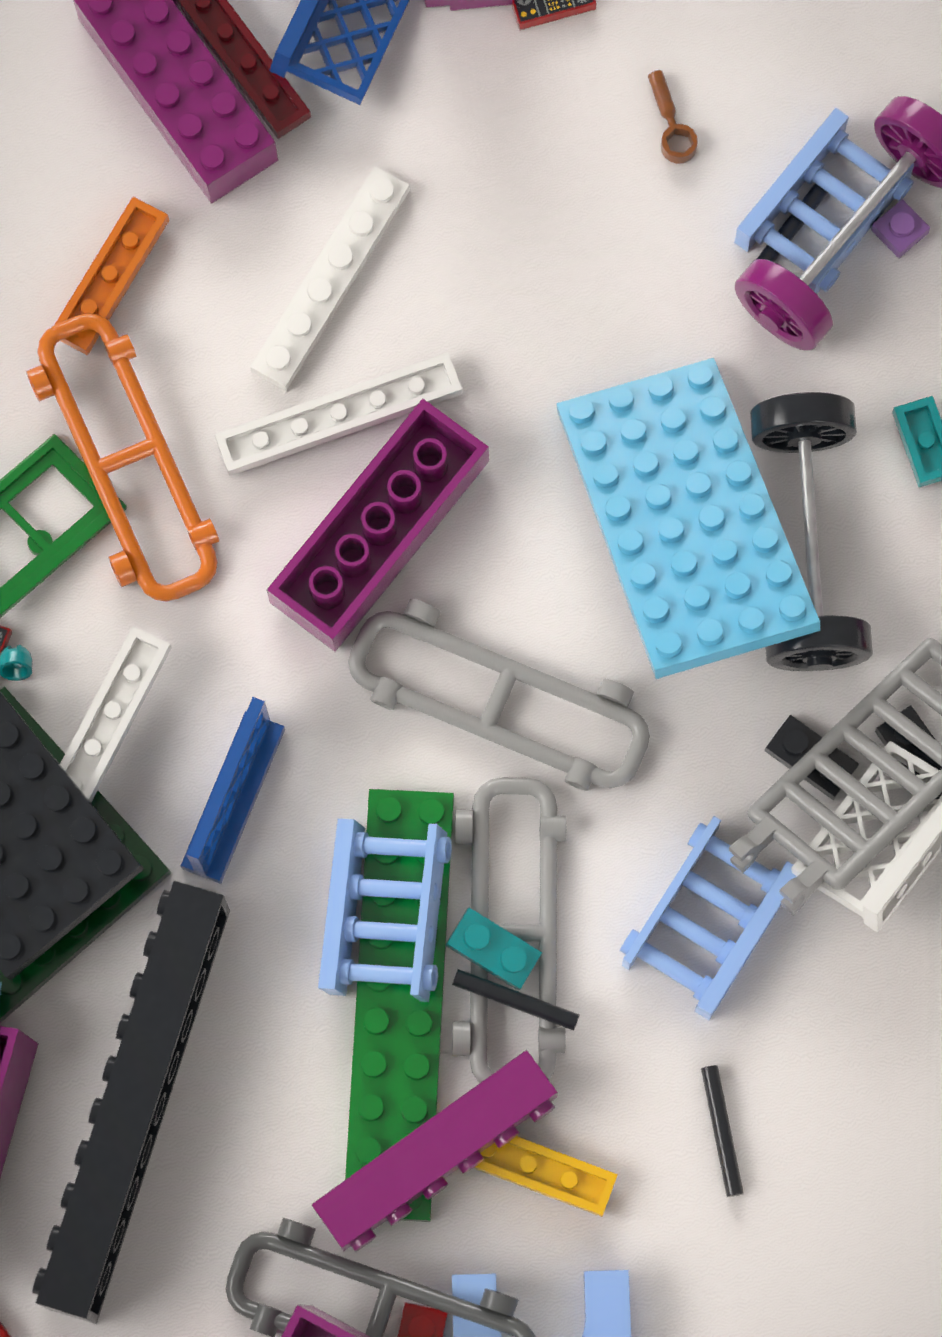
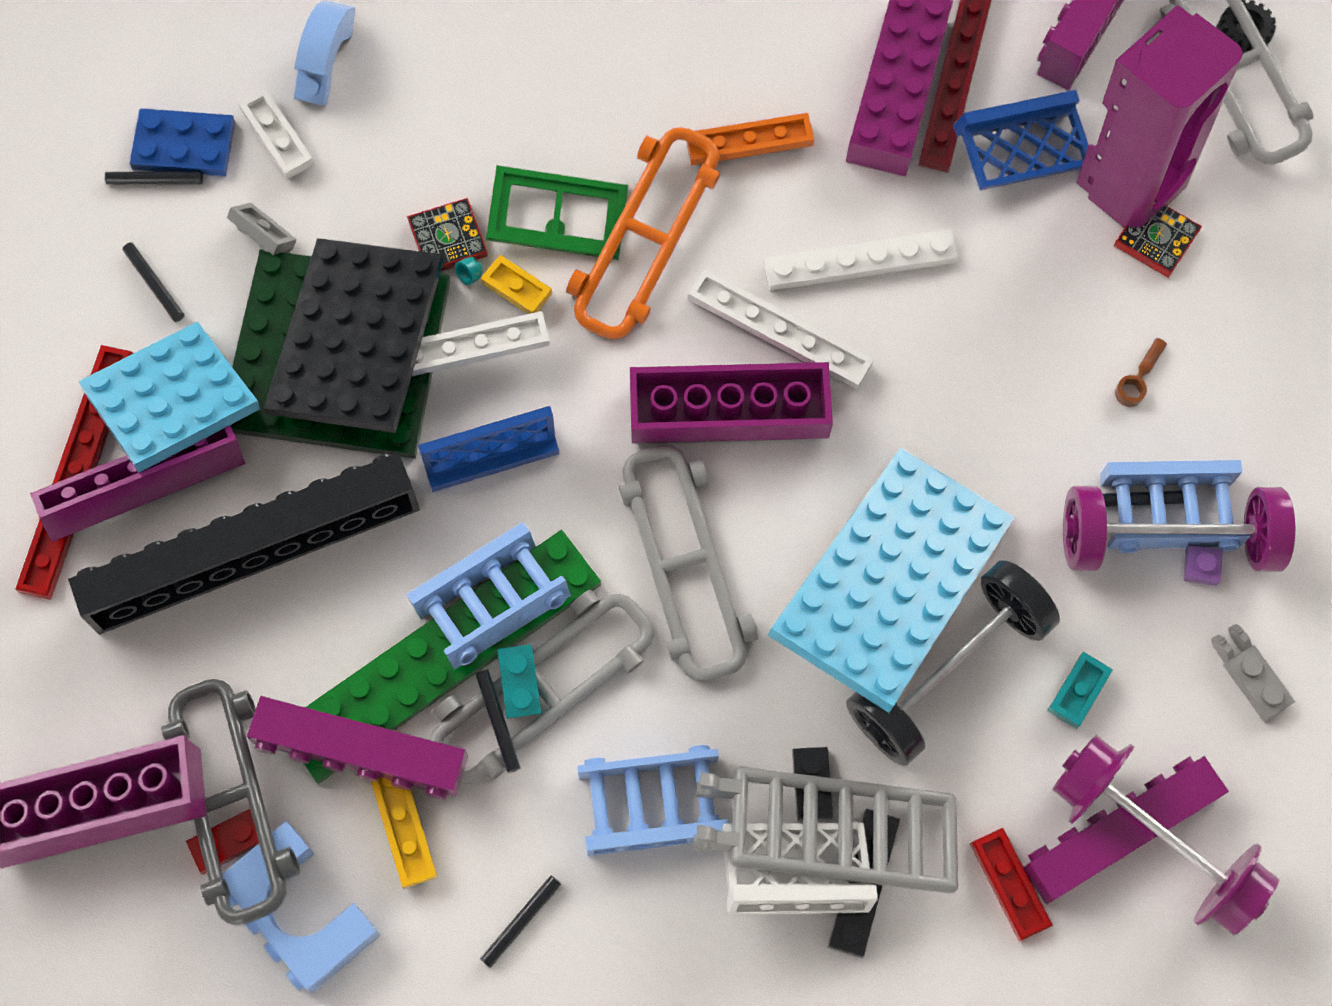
camera: 45 degrees right, 5 degrees down
(73, 629) = (516, 285): none -> yellow plate

